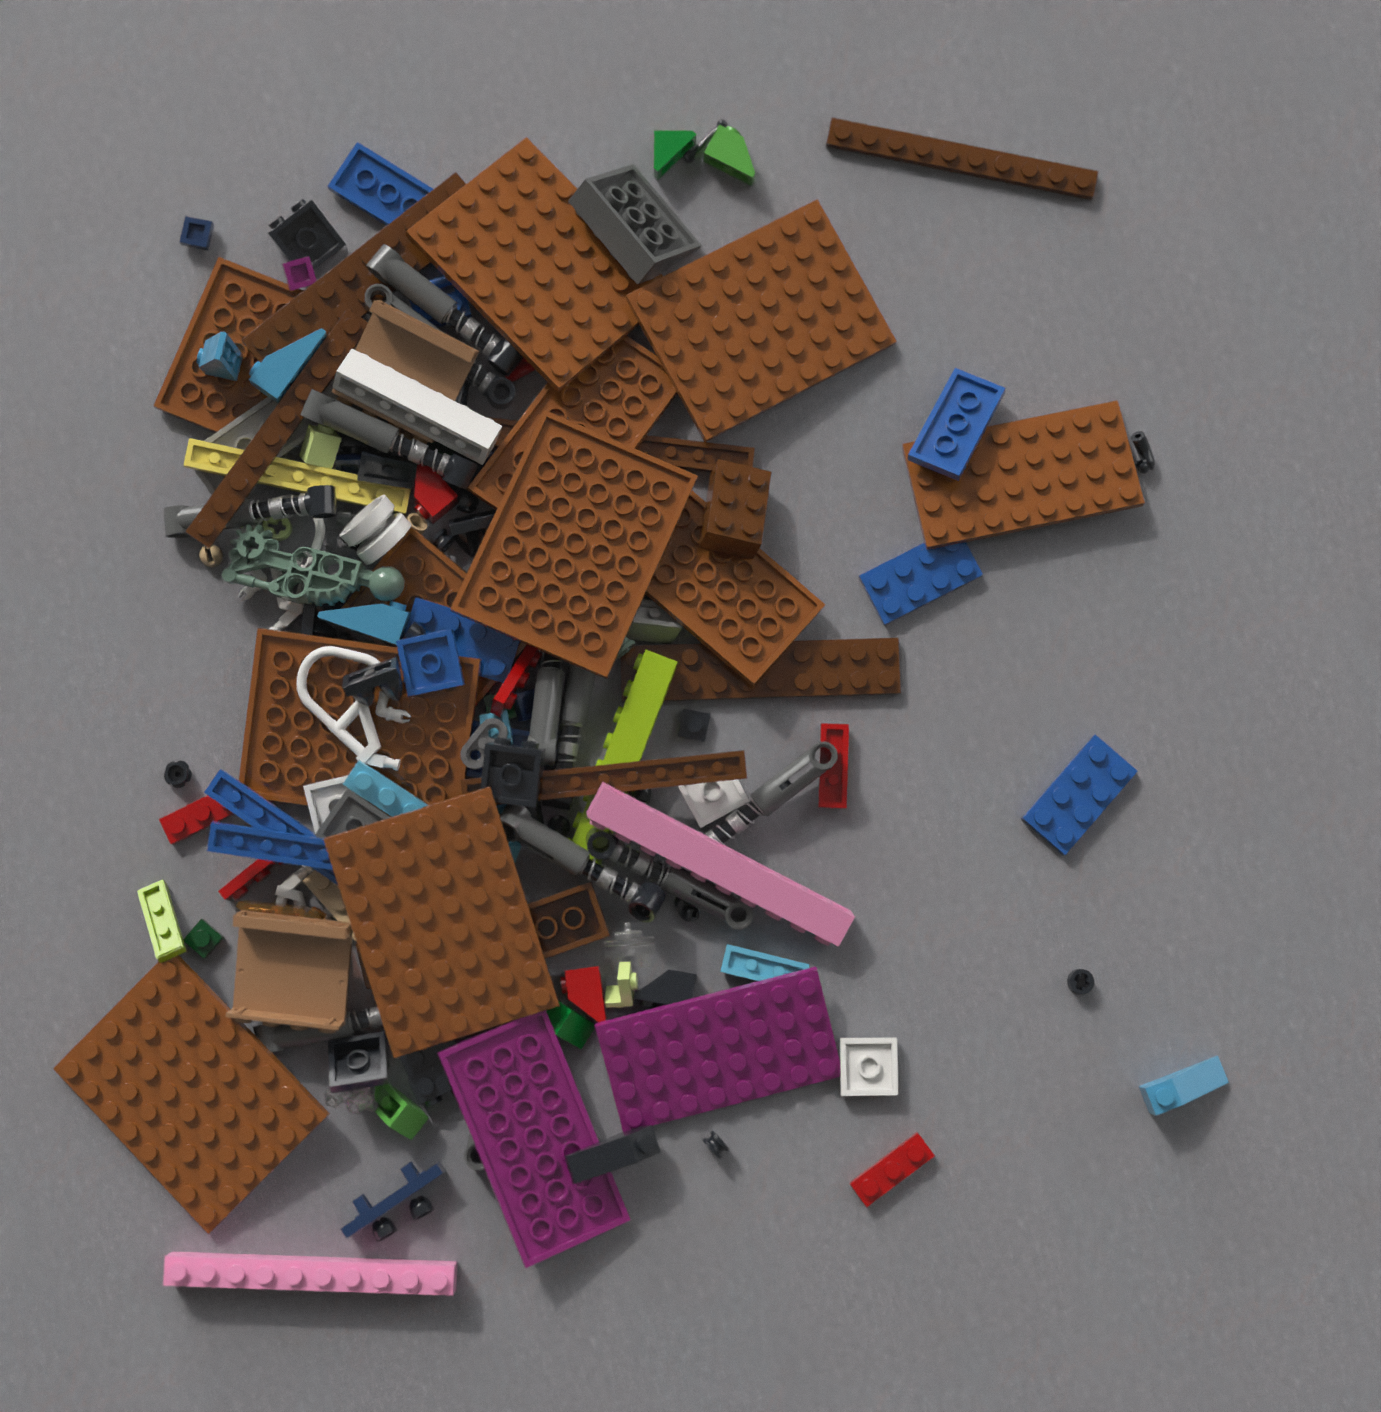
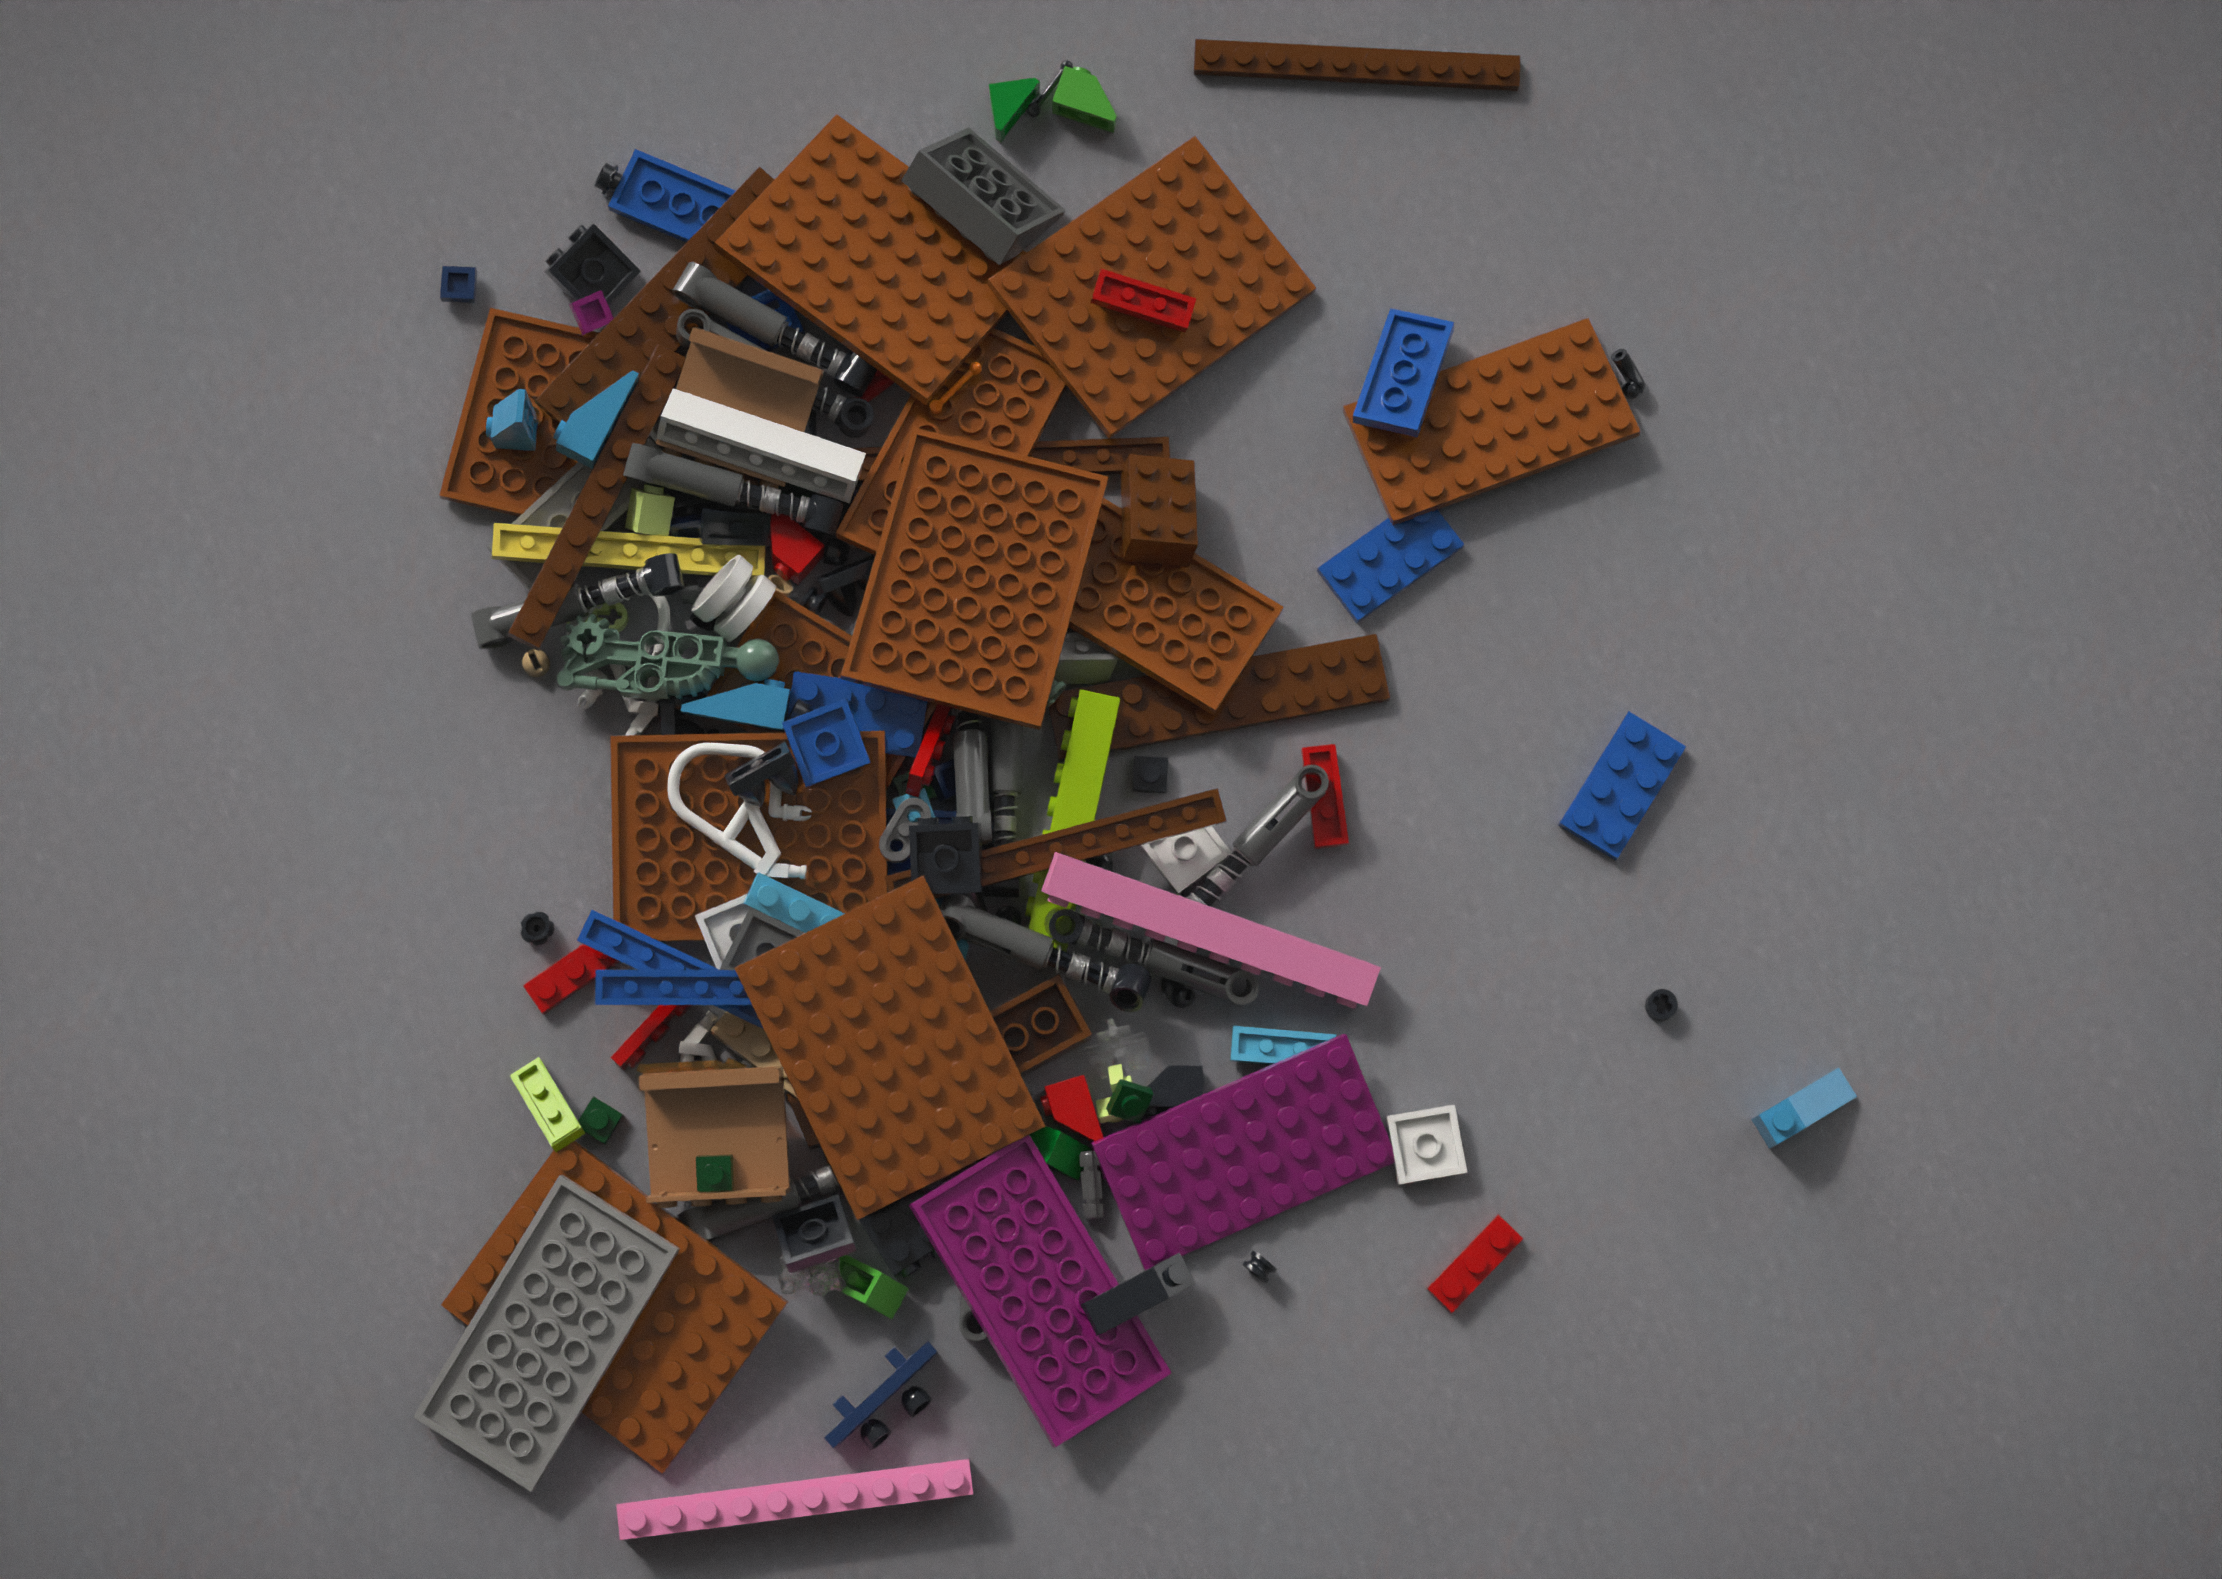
camera: 15 degrees left, 5 degrees down
(131, 1107) = (546, 1333): none -> light grey plate
(285, 1000) = (714, 1173): none -> dark green plate
(331, 163) = (608, 178): none -> black plate
(567, 394) = (936, 406): none -> orange hinge
(591, 1056) = (1091, 1185): none -> flat silver axle
(631, 995) = (1129, 1101): none -> dark green plate
(750, 332) = (1143, 300): none -> red plate

